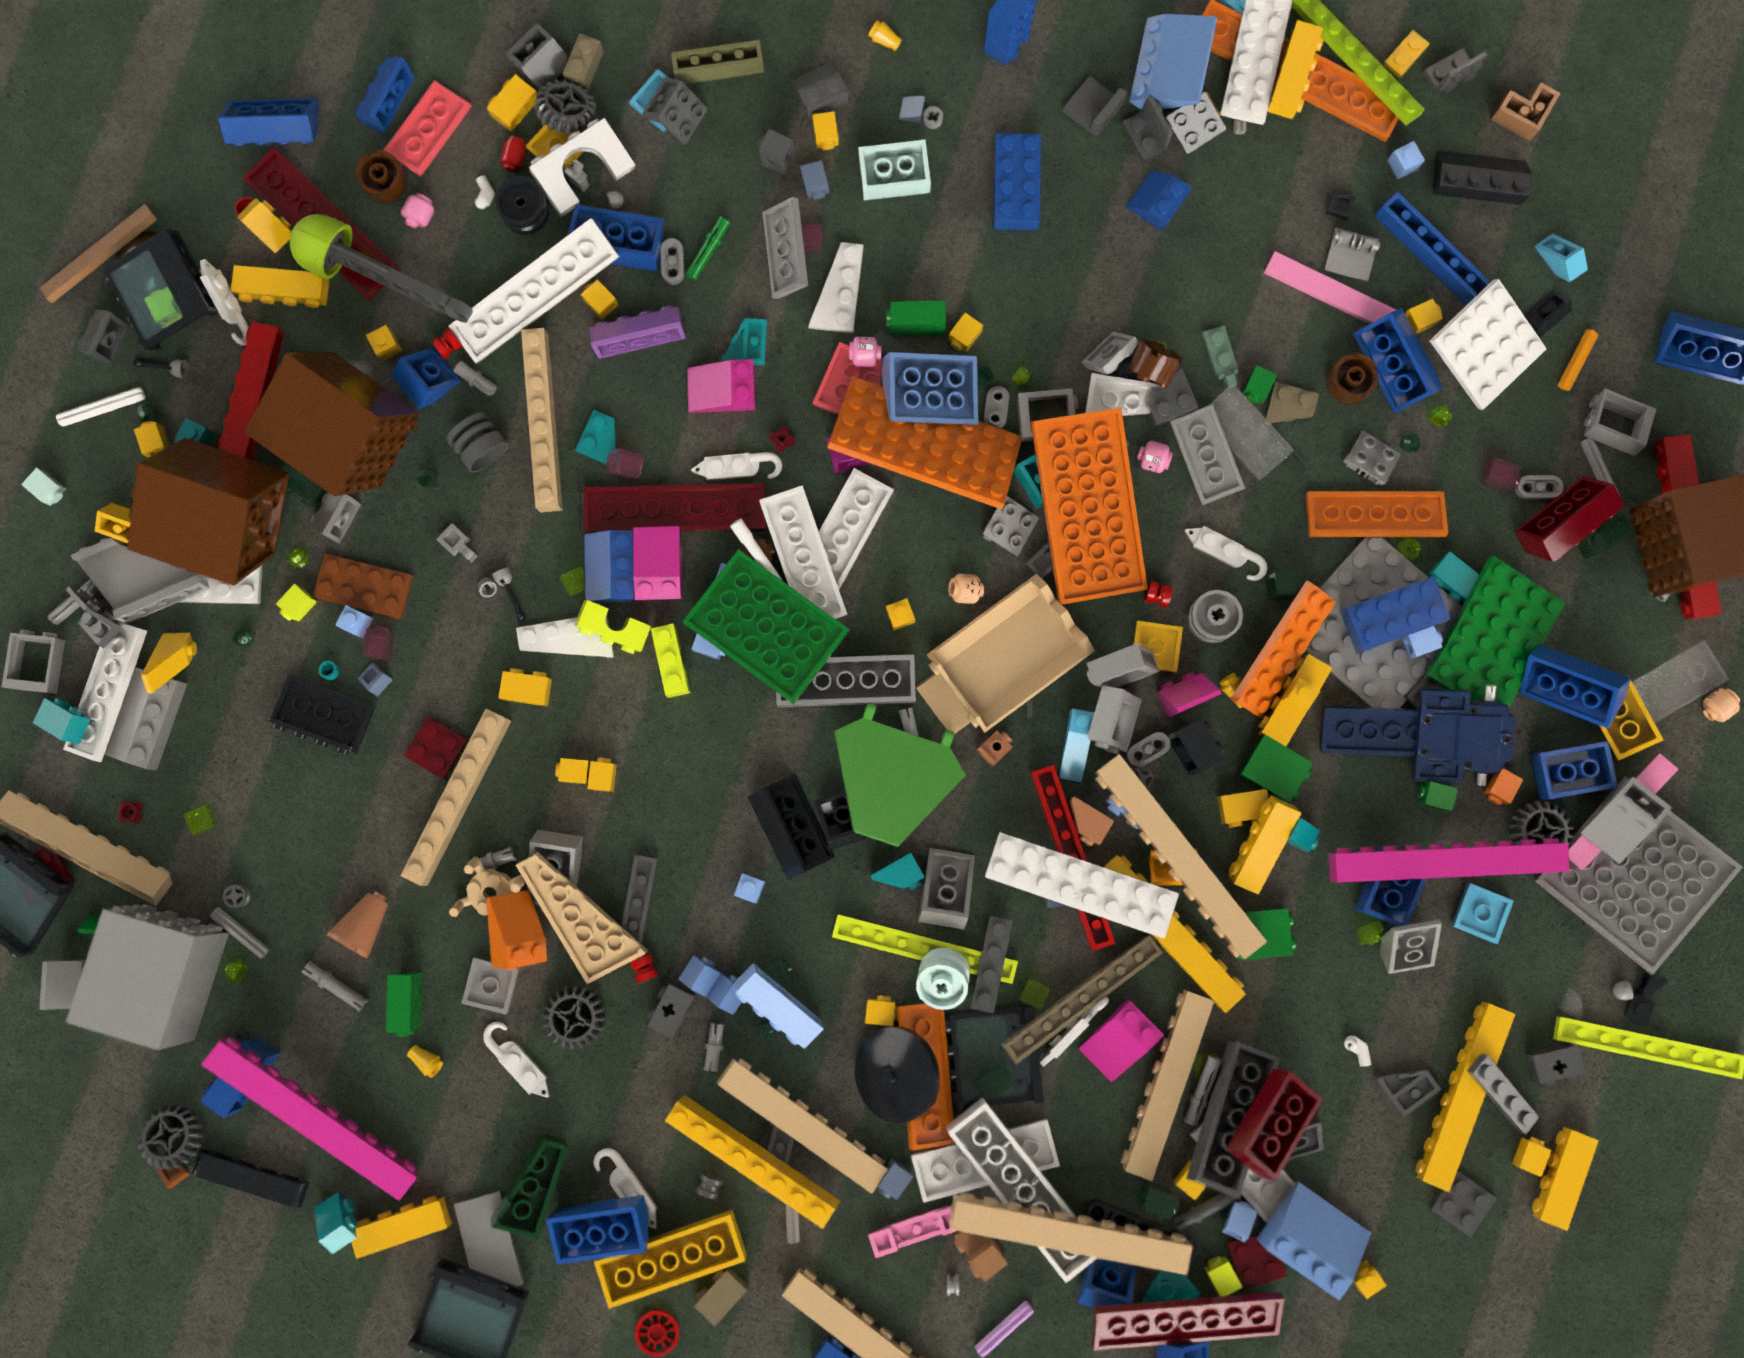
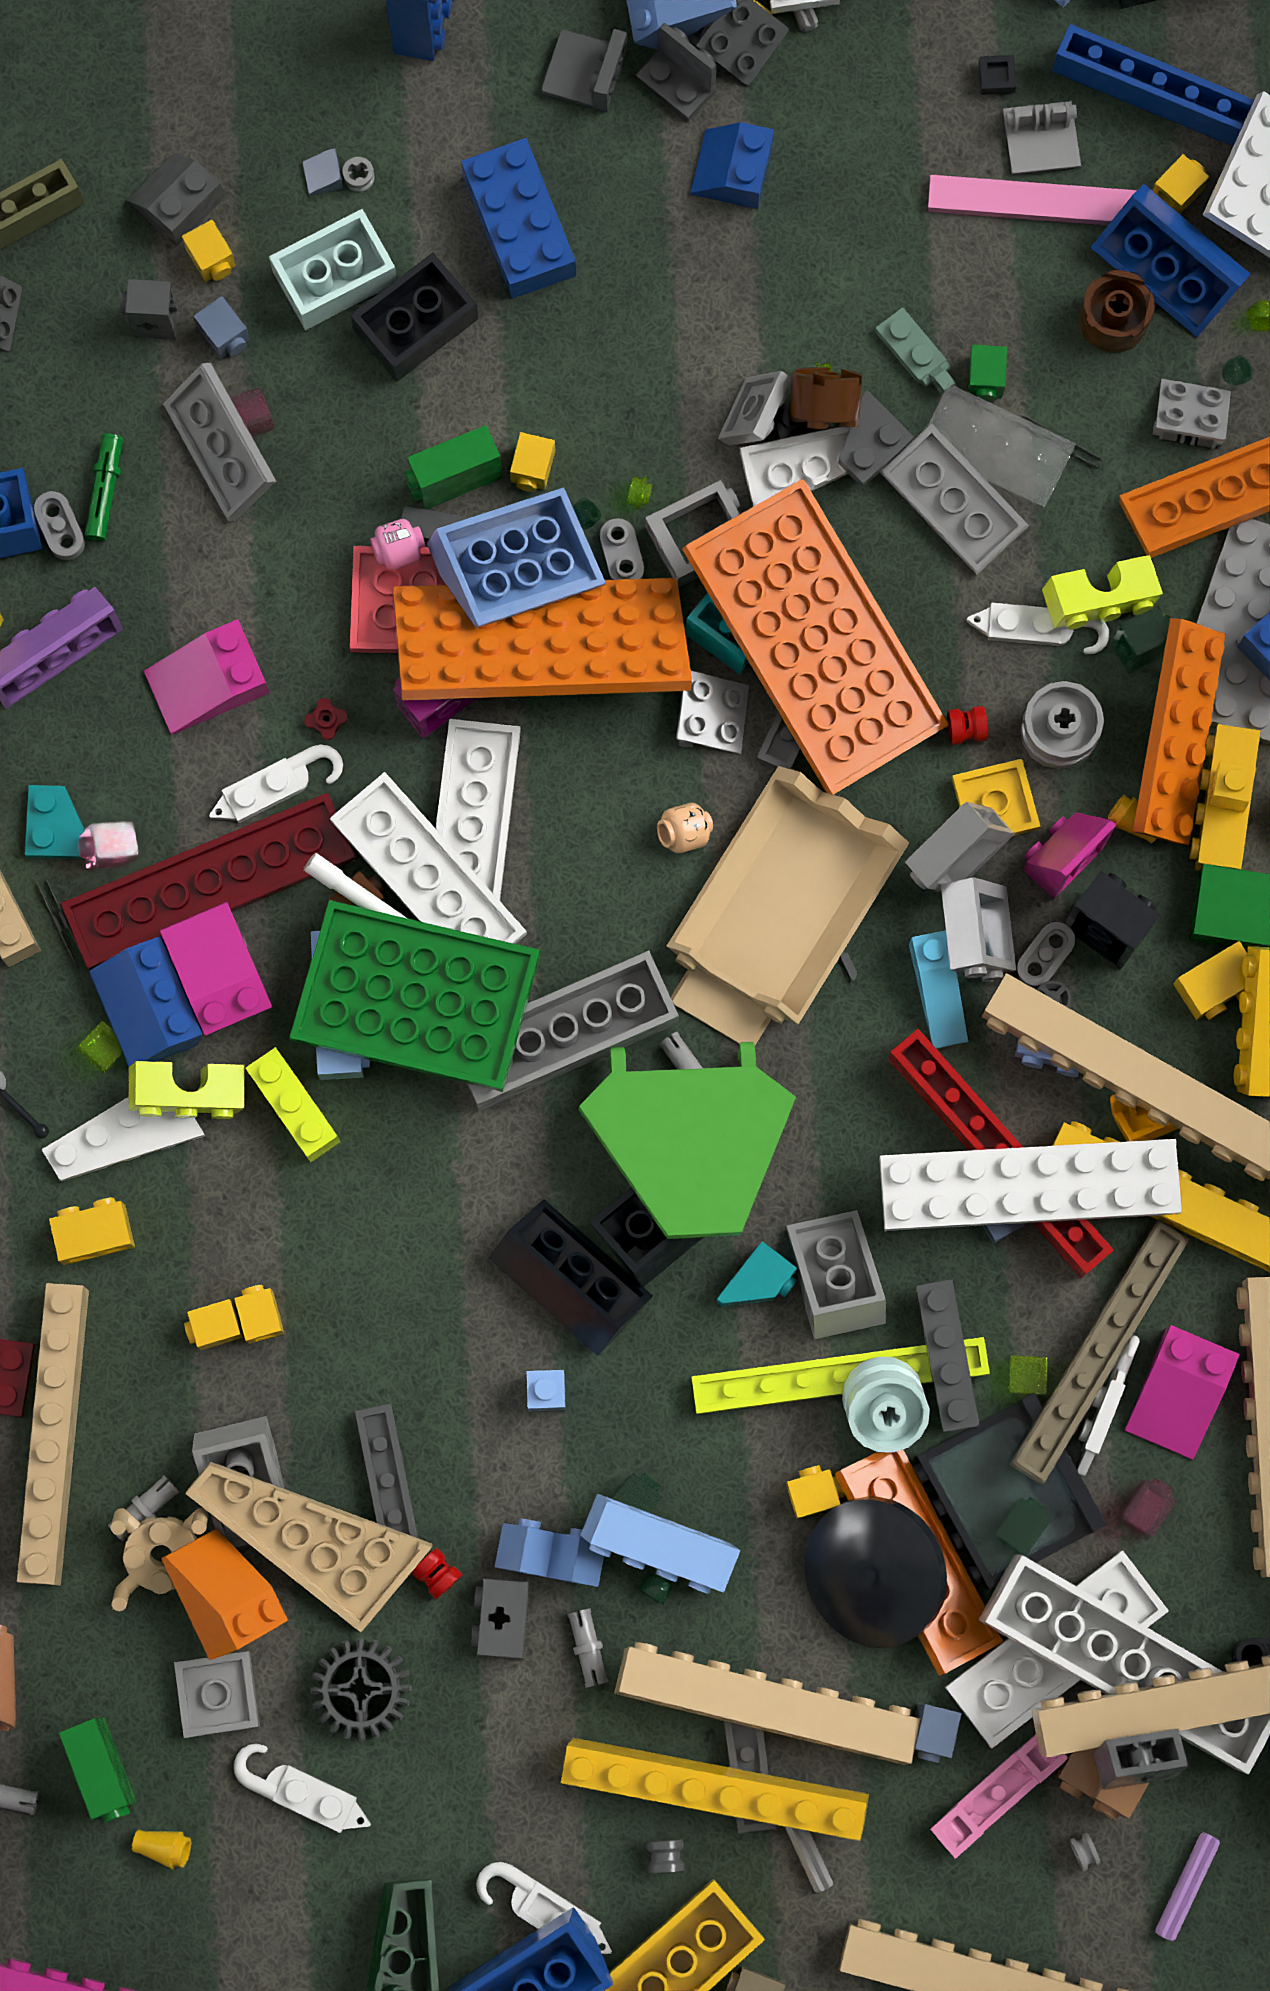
camera: 25 degrees left, 5 degrees down
(749, 342) = (220, 598): teal wing -> none
(839, 296) = (326, 482): white wing -> none
(884, 35) = (239, 84): yellow cone -> none
(900, 614) = (604, 903): yellow brick -> none
(930, 217) = (414, 317): none -> black brick
(987, 751) = (822, 1054): nougat brick -> none
(1004, 1253) = (1140, 1759): none -> dark grey brick
(1073, 1100) = (1148, 1507): none -> clear pink brick
(1089, 822) = (1004, 1090): nougat slope -> none
(1155, 456) = (880, 531): bright pink head -> none
(1254, 546) = (1075, 601): none -> neon yellow arch
(1290, 403) = (1042, 381): dark tan wing -> none

